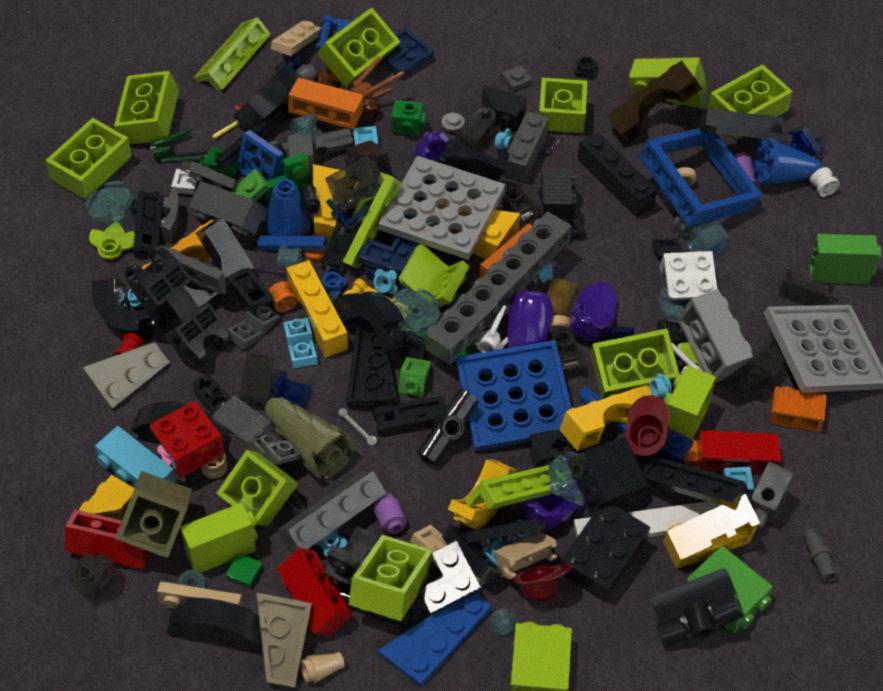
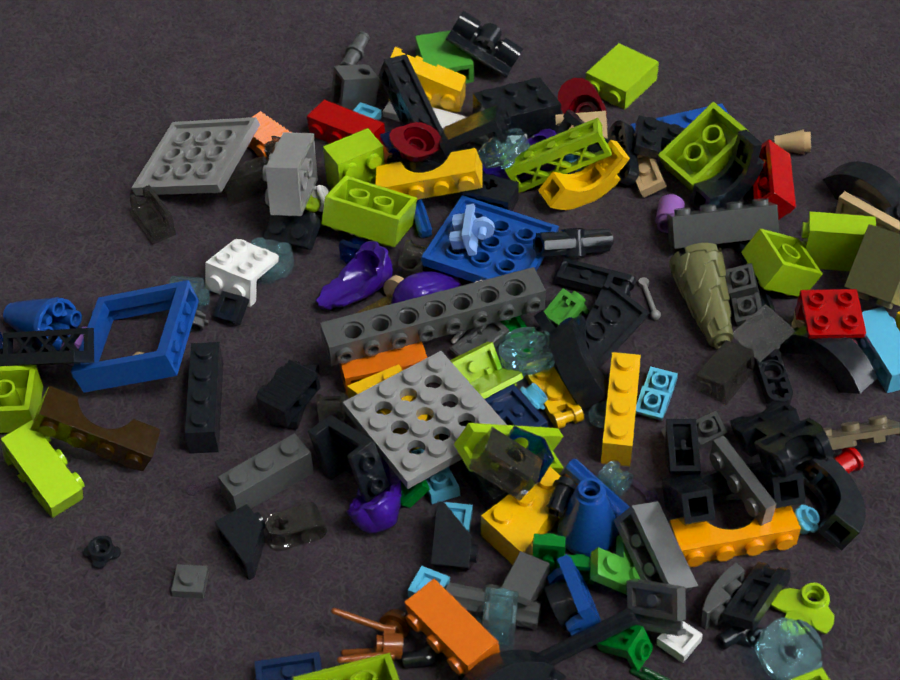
camera: 145 degrees left, 5 degrees down
(283, 297) = (648, 441): orange wheel -> none
(283, 636) = (816, 159): dark tan wing -> none
(290, 390) = (694, 351): clear blue bracket -> none
(333, 278) = (585, 429): blue plate -> none
(337, 249) = (565, 450): black hinge -> none
(407, 117) = (364, 577): green brick -> none
(452, 122) = (312, 558): light grey plate -> none
(502, 622) = (631, 109): clear light blue plate -> none
(503, 140) = (280, 497): medium azure plate -> none
(531, 377) = (469, 230): none -> light blue hips
(564, 104) = (183, 497): lime brick -> none
(660, 386) = (372, 169): medium azure plate -> none
(824, 182) = (20, 291): white wheel -> none
(844, 259) = (99, 209): bright green brick -> none

